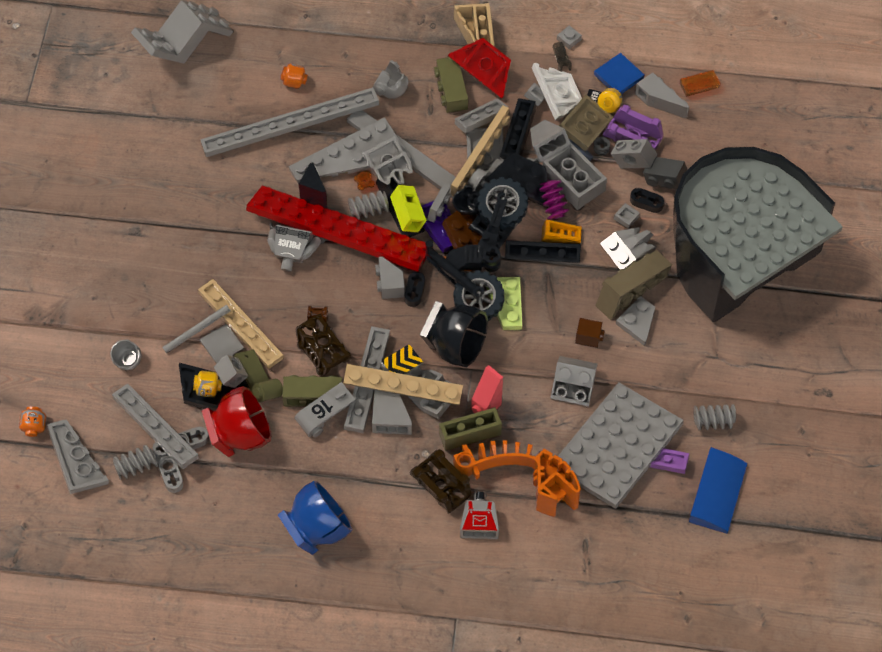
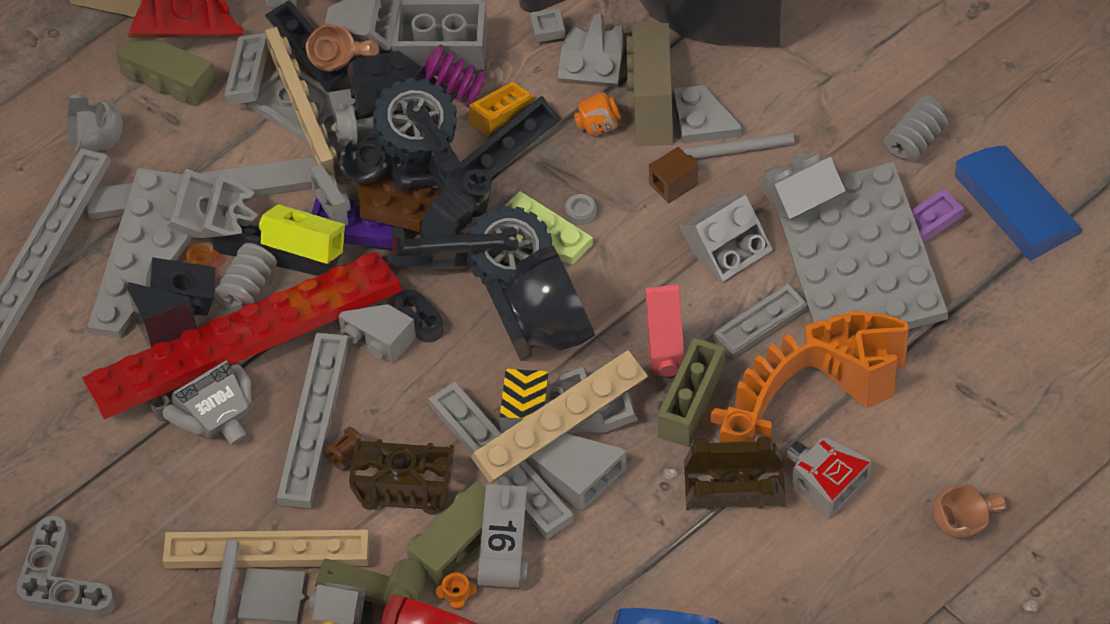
camera: 45 degrees left, 5 degrees down
(154, 252) = (48, 583): none -> light grey beam
(282, 408) = (456, 581): none -> orange plate
(321, 290) = (313, 420): none -> light grey plate
(337, 174) = (193, 279): none -> black brick
(509, 590) = (963, 511): none -> nougat hair
(518, 139) = (333, 47): none -> nougat hair
(535, 309) = (580, 209): none -> light grey tile
(541, 430) = (760, 321): none -> light grey tile
(593, 275) = (598, 114): none -> orange head
(627, 389) = (801, 184): none -> light grey slope
(632, 346) = (740, 146): none -> light grey bar

